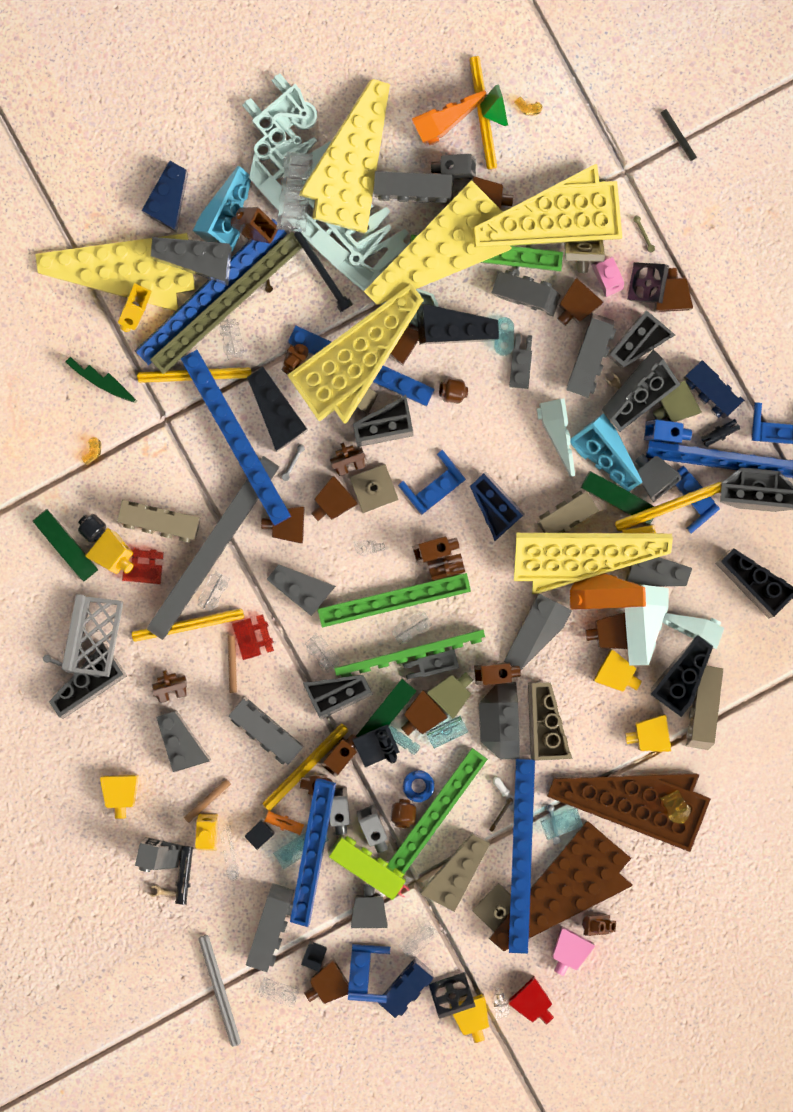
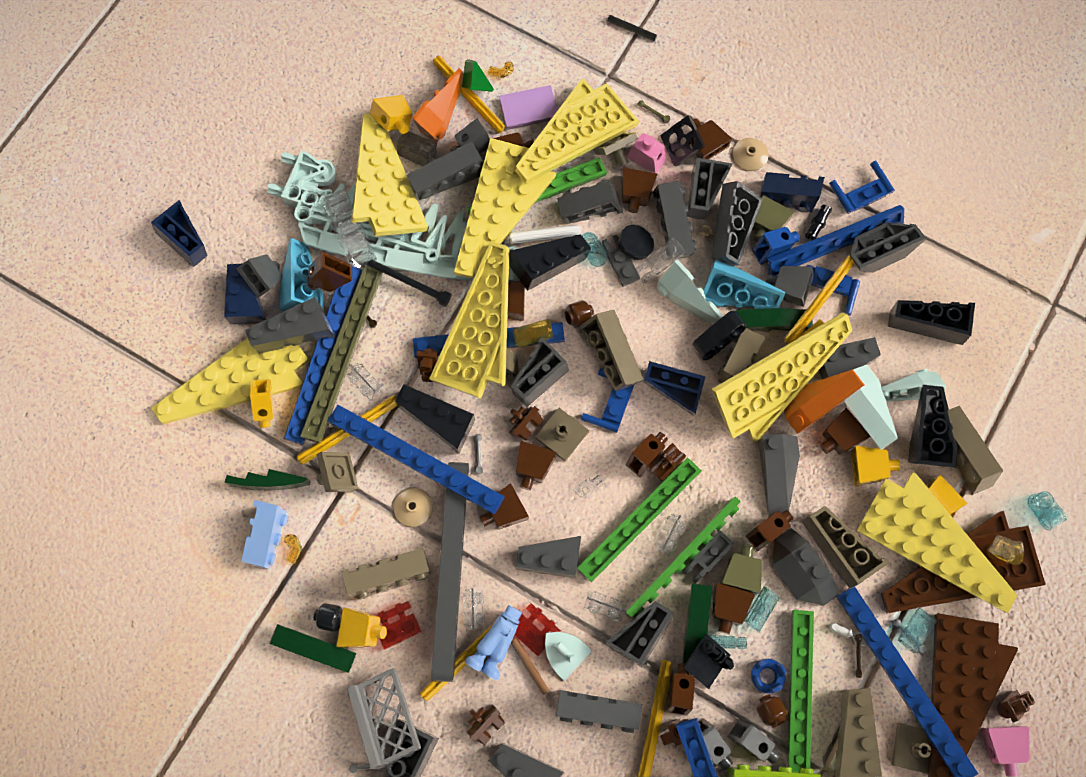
camera: 35 degrees left, 15 degrees down
(74, 427) = (265, 534): none -> light blue wedge
(143, 102) = (180, 234): none -> dark blue wedge
(163, 409) = (336, 472): none -> dark tan tile
(194, 189) = (260, 274): none -> dark grey torso
(214, 630) = (495, 643): none -> light blue piece
(219, 482) = (417, 516): none -> tan dish
(267, 670) = (565, 652): none -> light aqua shield
(399, 96) = (392, 113): none -> yellow torso
(401, 386) = (532, 333): none -> clear yellow slope
(402, 142) = (416, 148): none -> clear smoke hinge
(459, 443) = (612, 349): none -> dark tan wedge
(467, 297) = (544, 234): none -> white axle
(531, 160) = (528, 107): none -> lavender tile
(544, 354) = (636, 242): none -> black tile
(556, 385) = (661, 259): none -> clear hinge
(560, 485) = (719, 335): none -> black beam
(619, 753) = (924, 532): none -> light yellow wing
(696, 334) = (747, 160): none -> tan dish
(736, 799) = (1047, 511): none -> clear light blue piece

